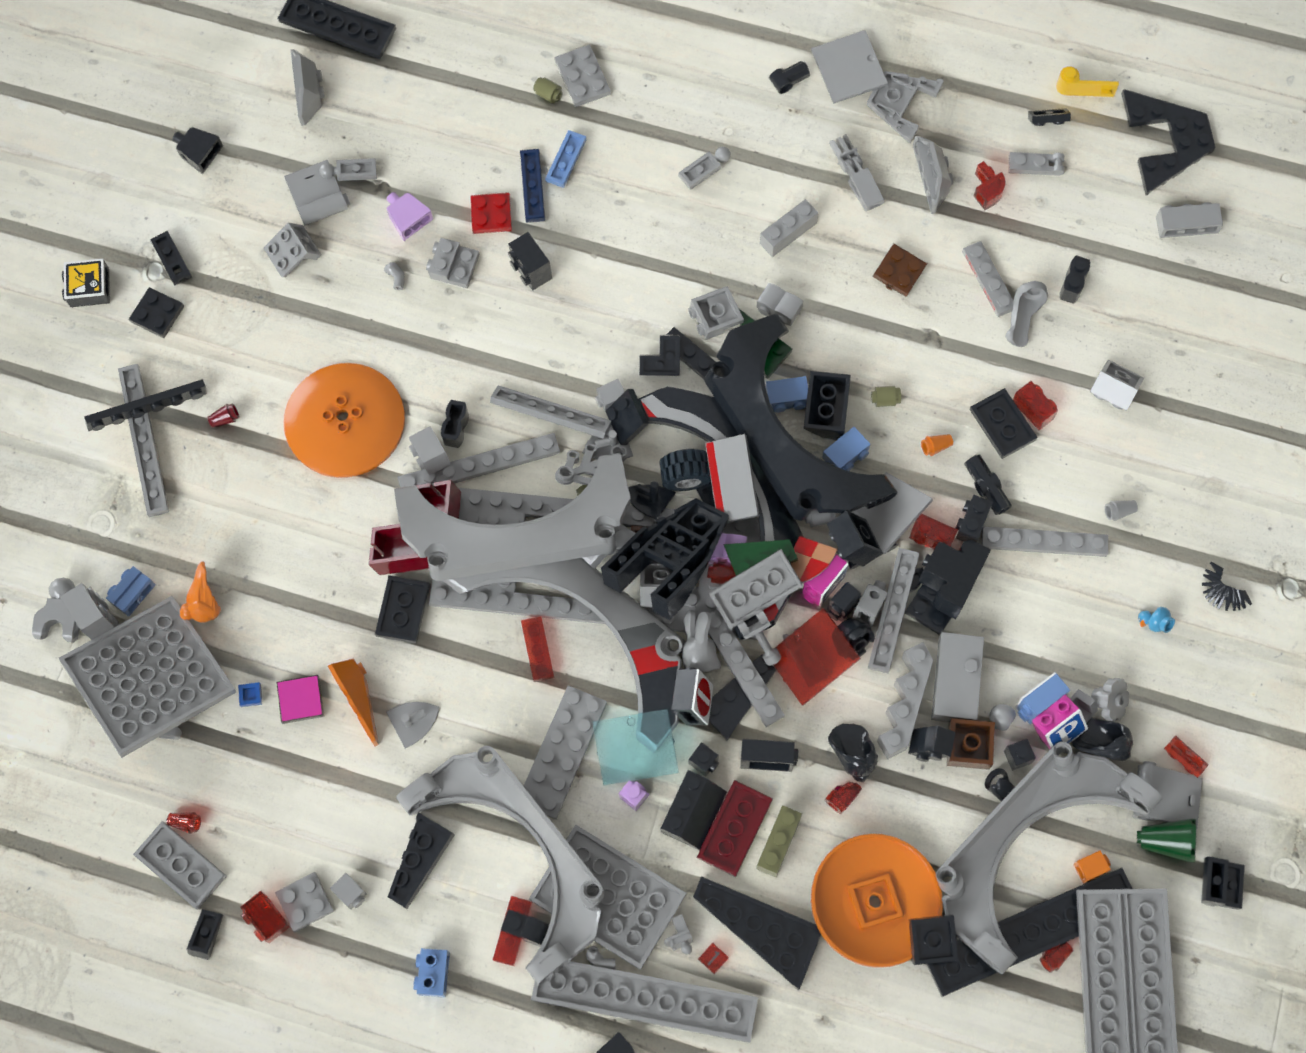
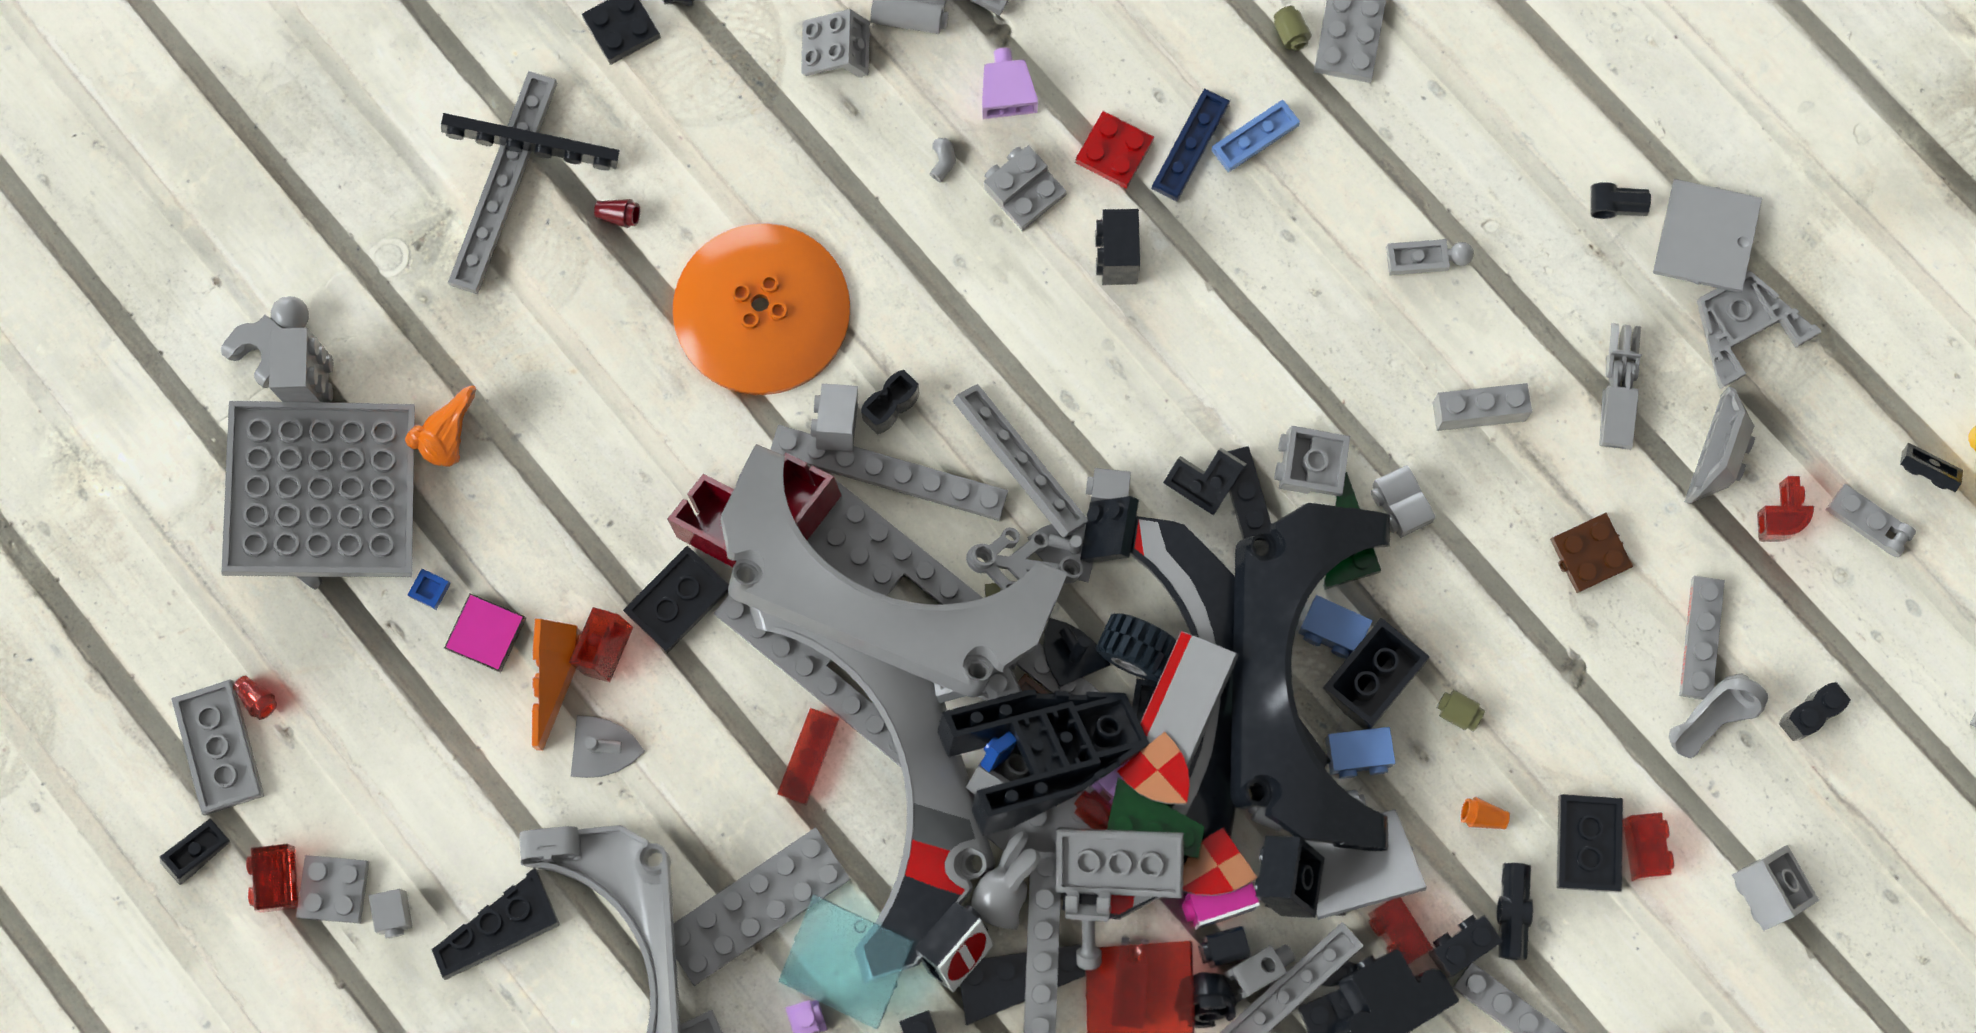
camera: 30 degrees right, 5 degrees up
(130, 590) = (368, 366): medium blue brick -> none
(375, 660) = (601, 644): none -> clear red brick
(646, 571) = (998, 751): none -> blue plate
(744, 526) = (1159, 772): none -> shield

